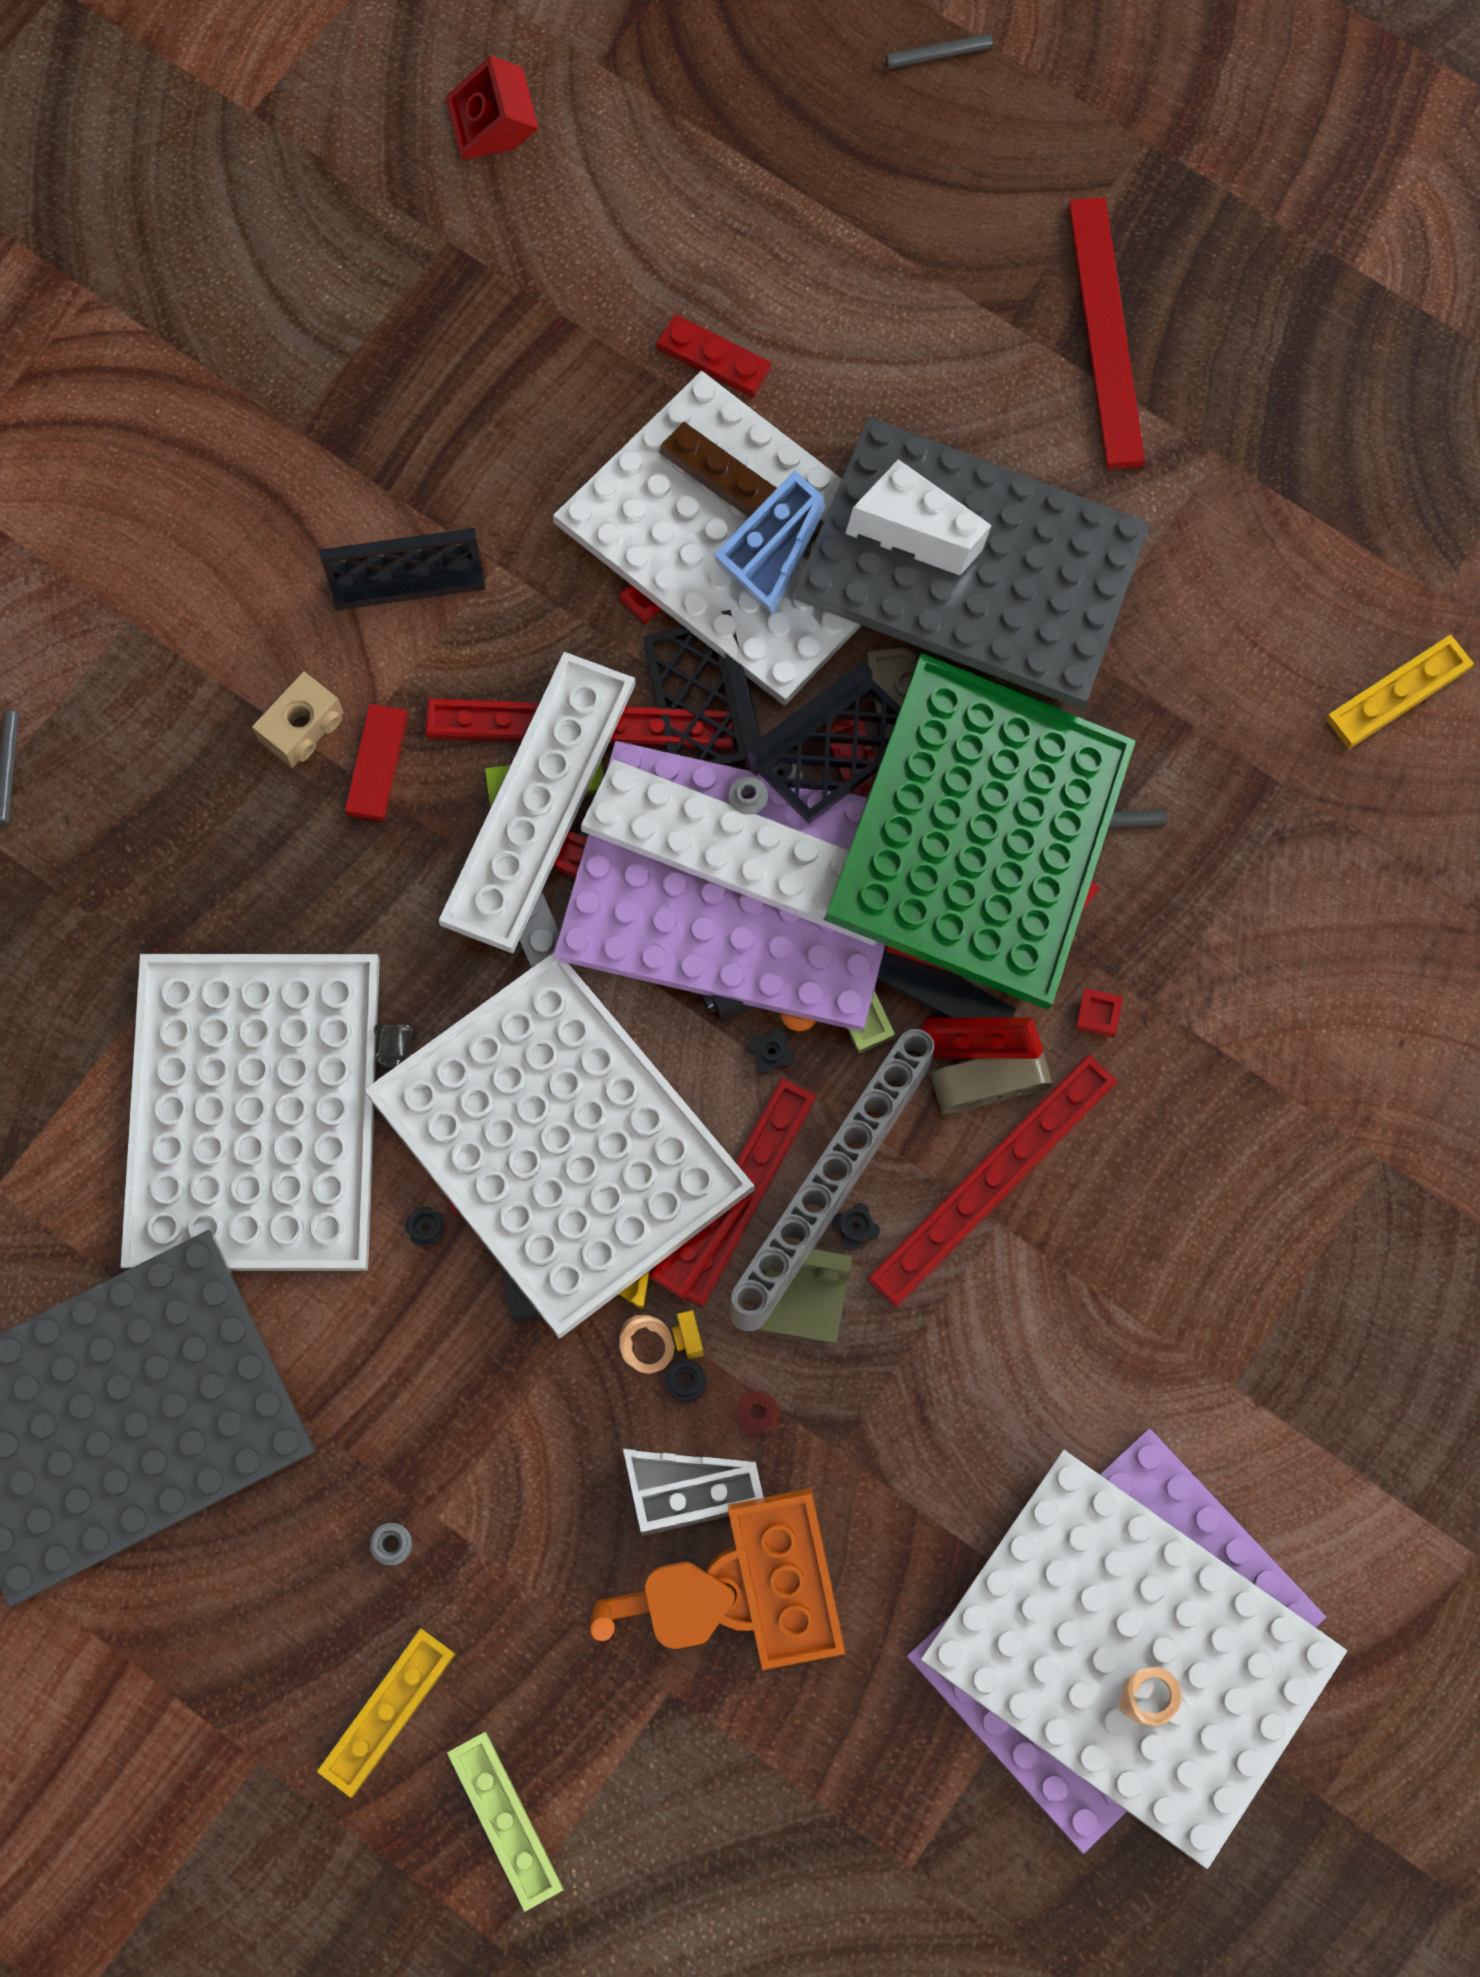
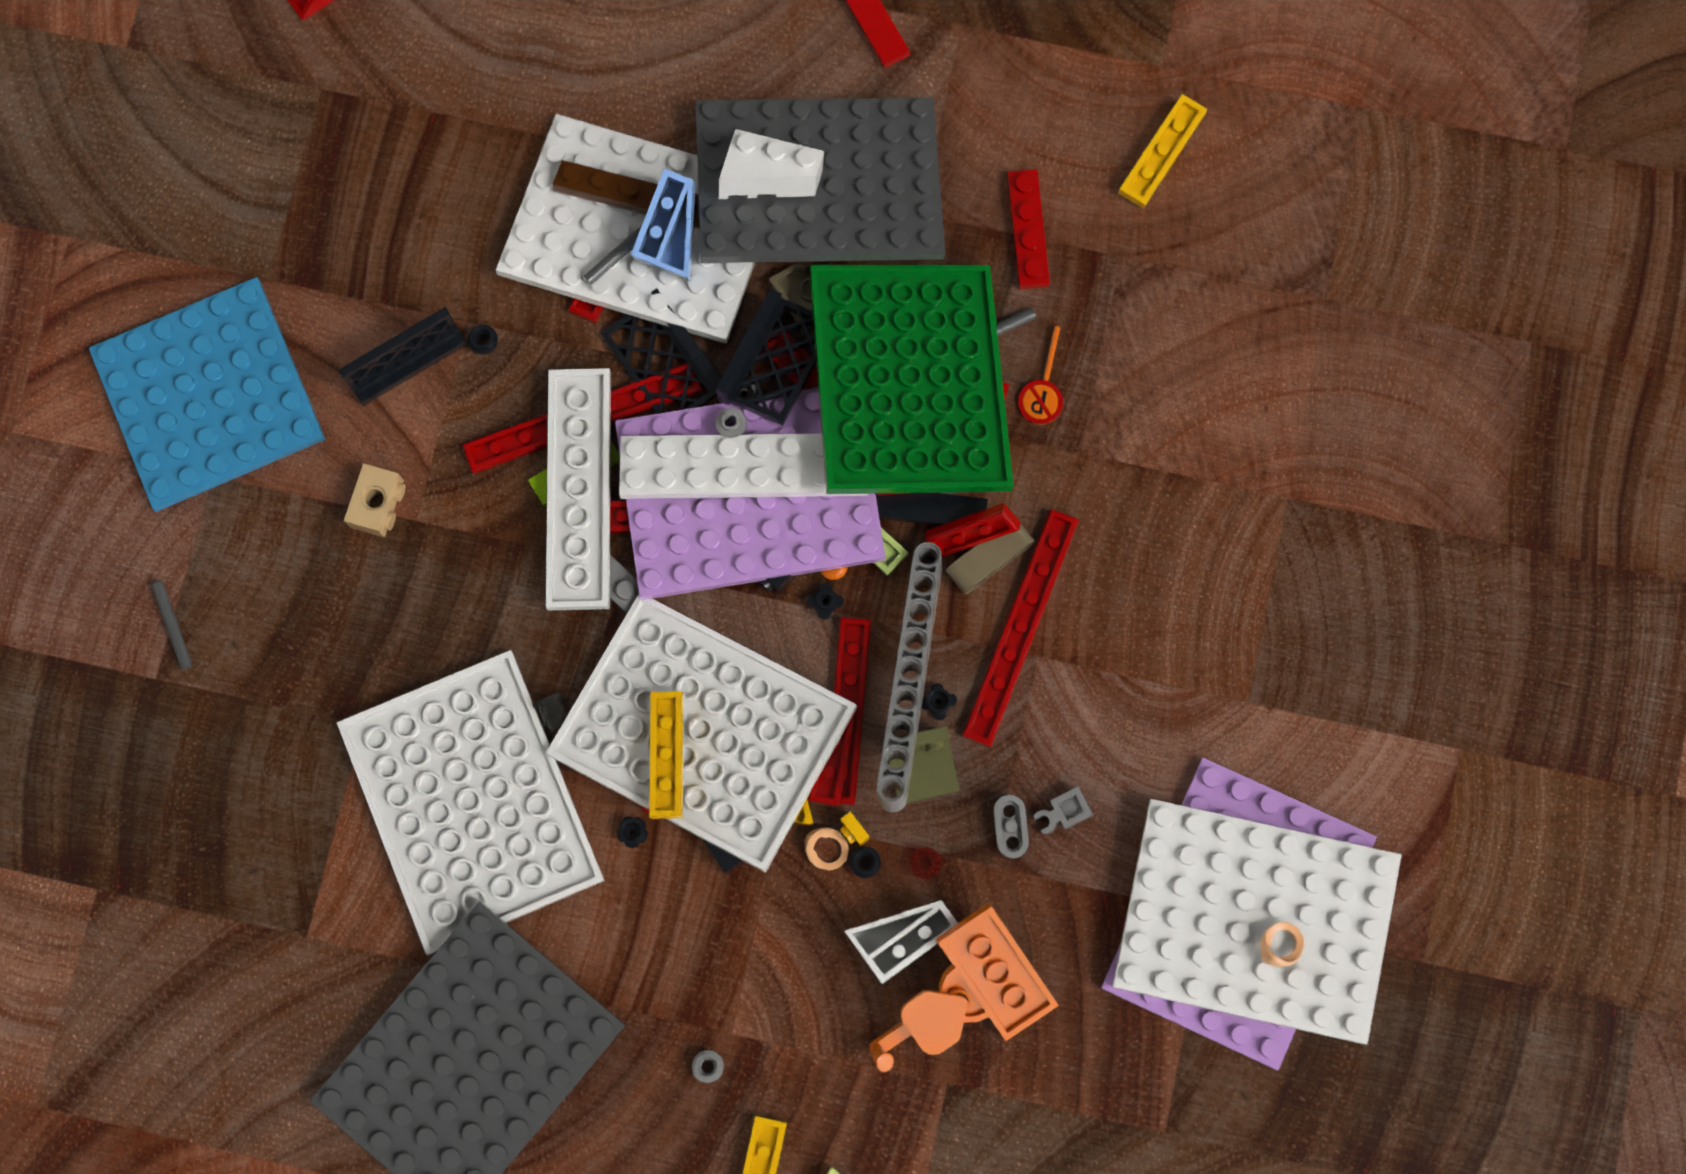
camera: 20 degrees left, 5 degrees up
(164, 526) = (206, 394): none -> dark azure plate
(376, 762) = (445, 508): red tile -> none
(502, 1150) = (666, 755): none -> yellow plate
(504, 579) = (478, 332): none -> black plate
(686, 556) = (611, 259): none -> dark grey bar
(714, 356) = (559, 98): red plate -> none
(879, 1413) = (1011, 826): none -> light grey plate
(959, 1421) = (1068, 809): none -> light grey plate
(1099, 1013) = (1046, 476): red plate -> none
(1131, 922) = (1040, 399): none -> piece
(1199, 719) = (1028, 229): none -> red plate

